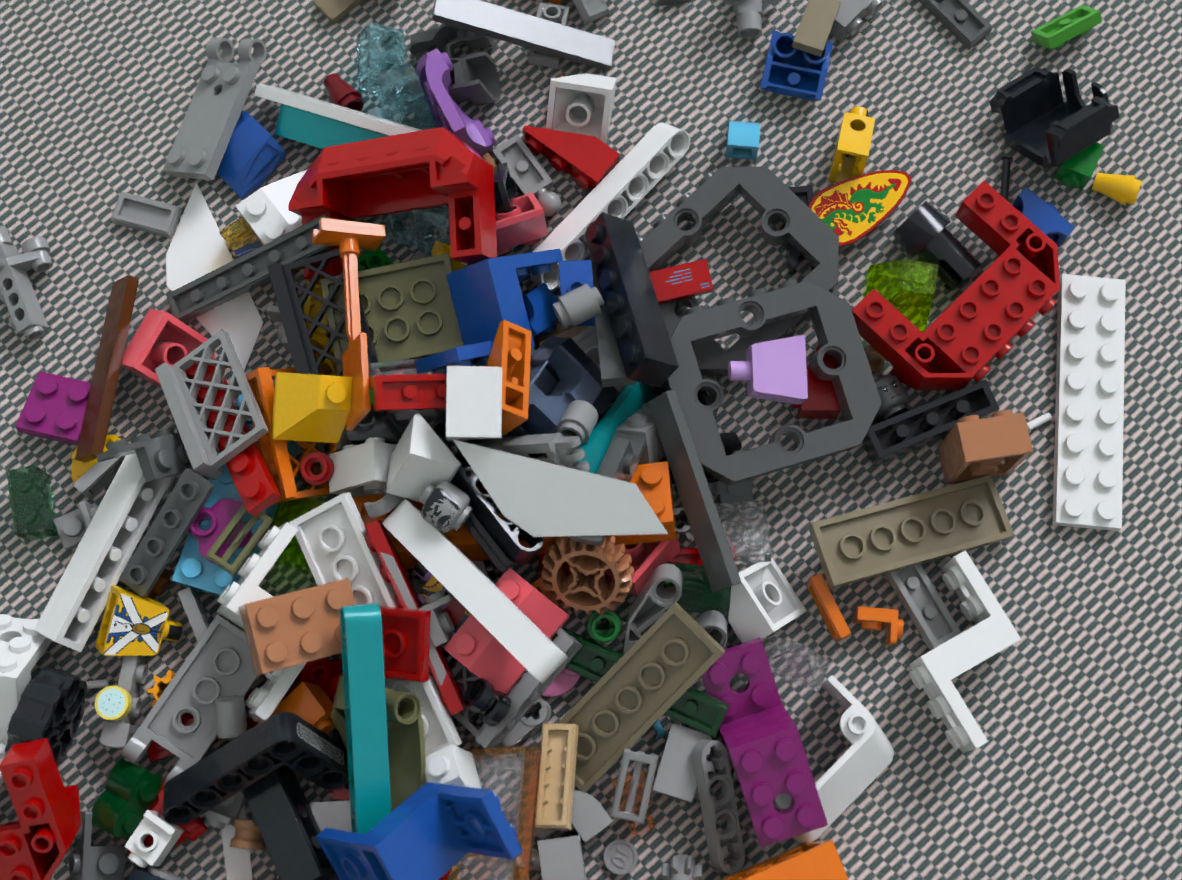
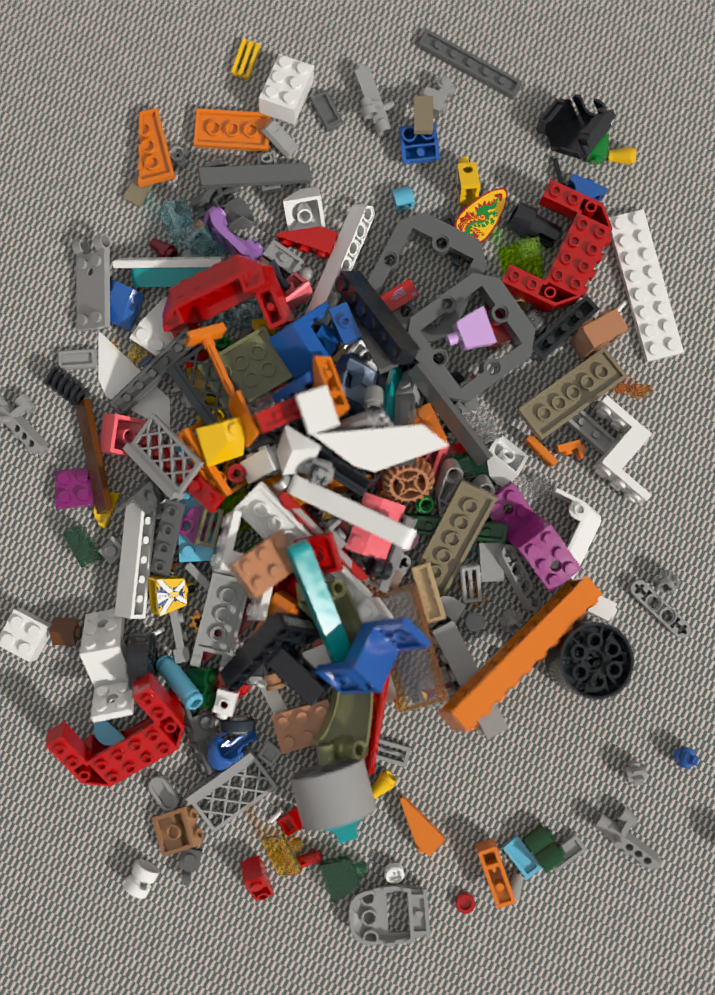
camera: 20 degrees left, 10 degrees up
(92, 778) = (179, 682): none -> medium azure axle
(98, 477) = (113, 518): light grey tile -> none
(110, 246) = (64, 387): none -> black piece
(113, 703) = (174, 639): tile -> none
(231, 716) = (242, 624): light grey piece -> none
(578, 306) = (350, 332): light grey brick -> none
(1024, 564) = (636, 390): none -> clear orange plate
(1065, 27) = (565, 67): bright green plate -> none

